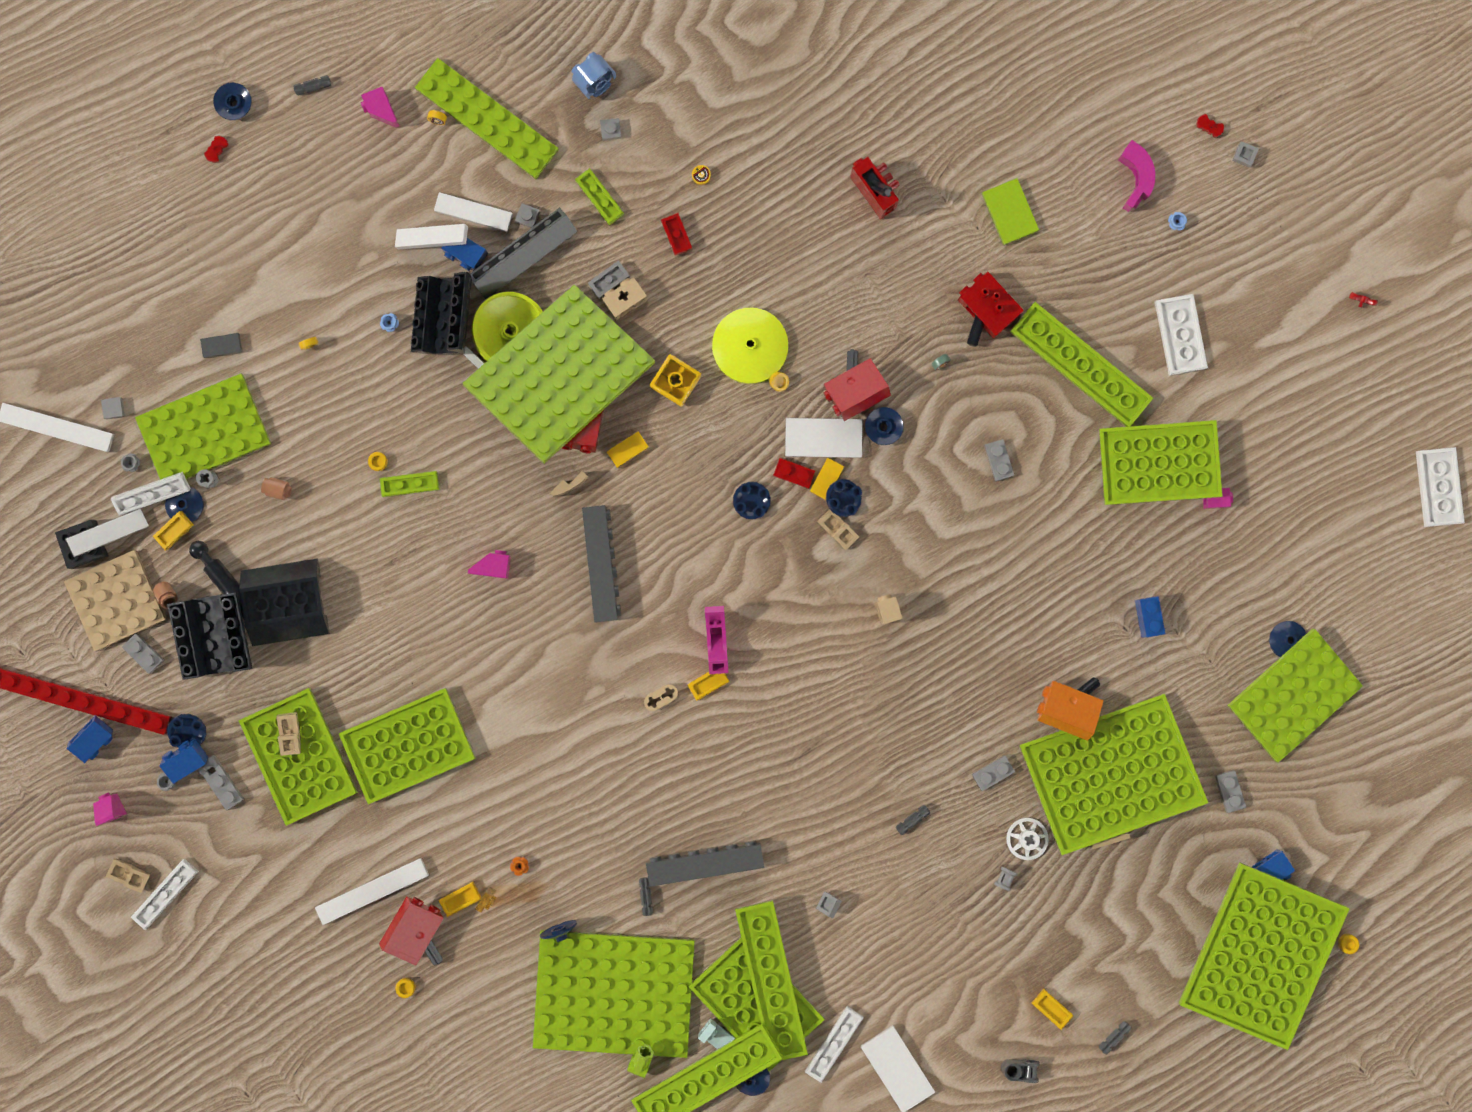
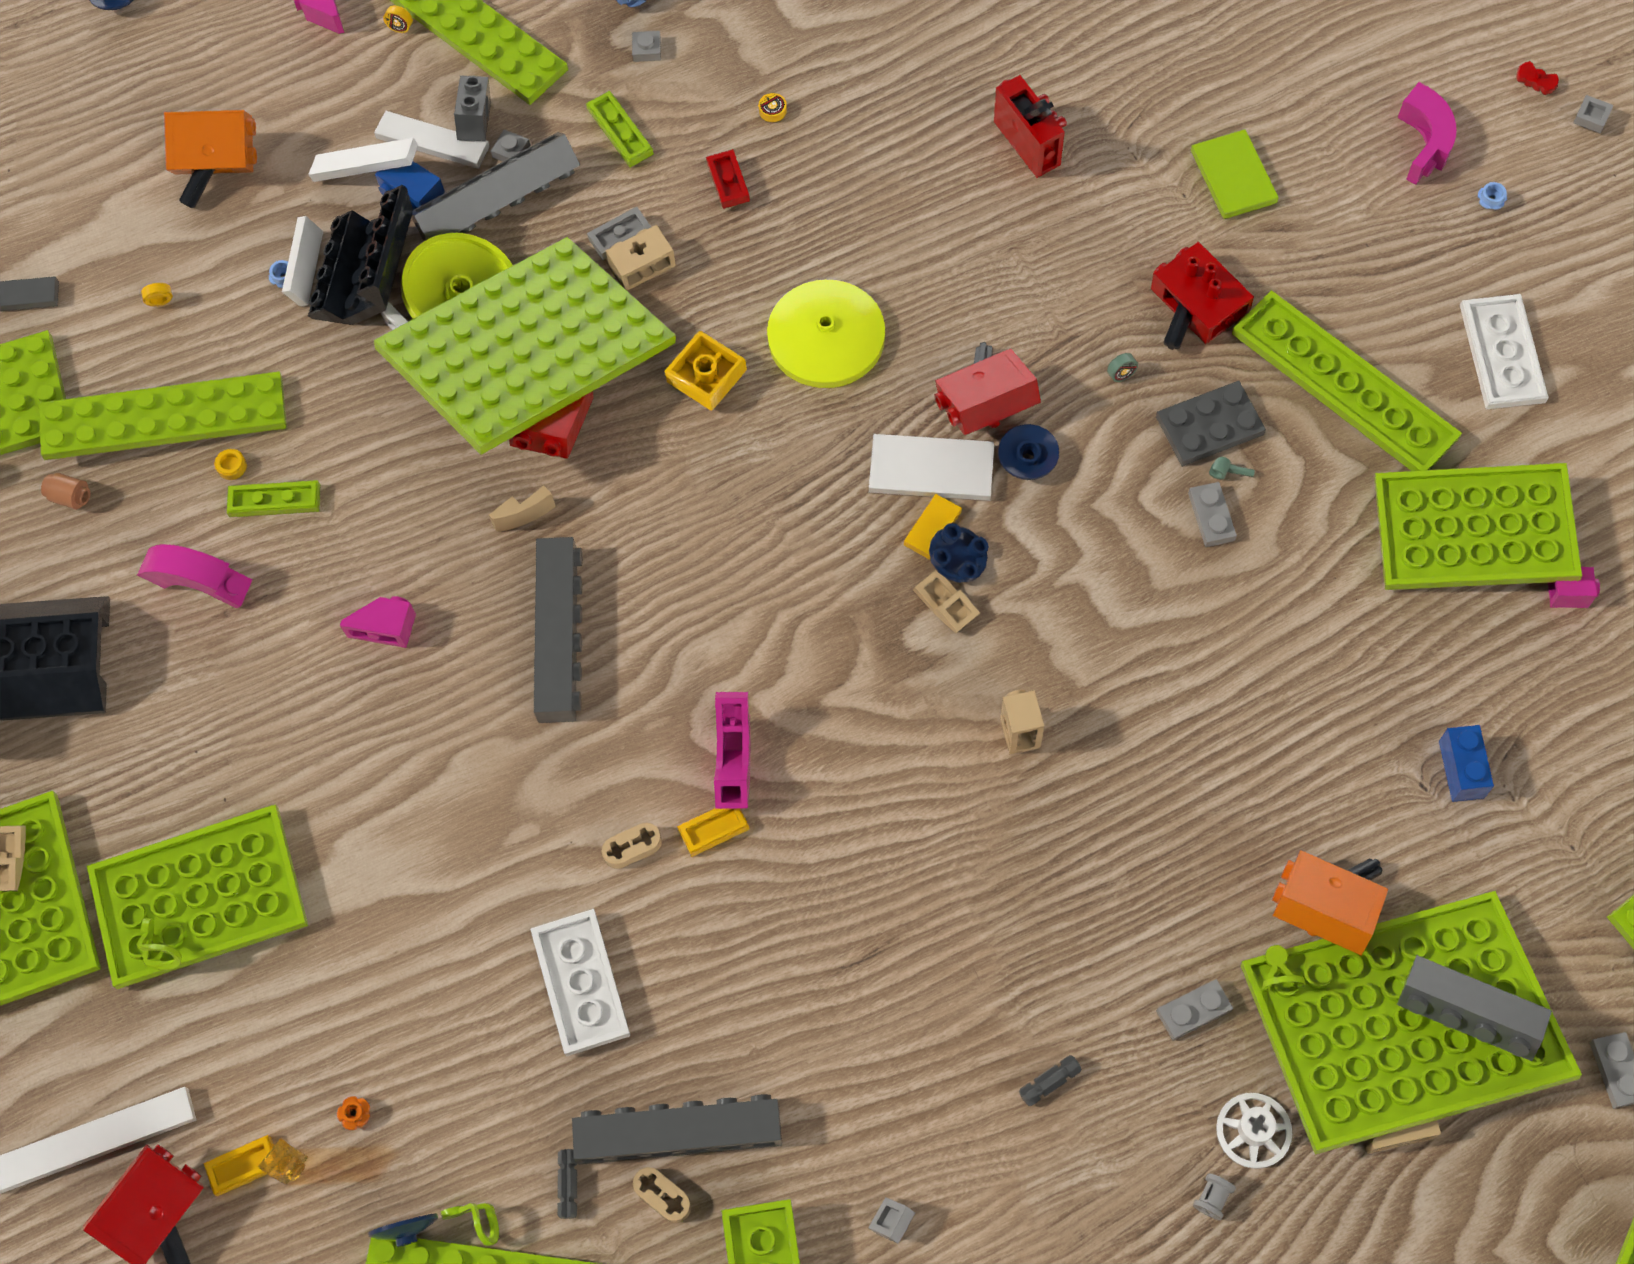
camera: 10 degrees right, 20 degrees down
(216, 148) = (77, 46): red piece -> none
(325, 232) = (208, 145): none -> orange piece
(328, 432) = (161, 415): none -> lime plate
(369, 542) = (187, 567): none -> dark pink arch
(401, 313) = (302, 261): none -> white tile
(401, 788) = (143, 944): none -> lime piece
(499, 191) = (472, 108): none -> dark grey brick
(595, 915) = (471, 1207): none -> lime piece
(627, 449) = (620, 467): yellow tile -> none
(640, 782) = (580, 982): none -> white plate
(702, 895) = (656, 1201): none -> tan beam
(751, 500) = (809, 550): dark blue dish -> none
(779, 381) = (867, 382): yellow tile -> none
(794, 473) = (880, 515): red plate -> none
(997, 396) = (1210, 423): none -> dark grey plate
(1005, 427) = (1223, 465): none -> sand green hand
(1039, 742) = (1276, 958): none -> lime piece
(1150, 771) = (1474, 1008): none -> dark grey brick

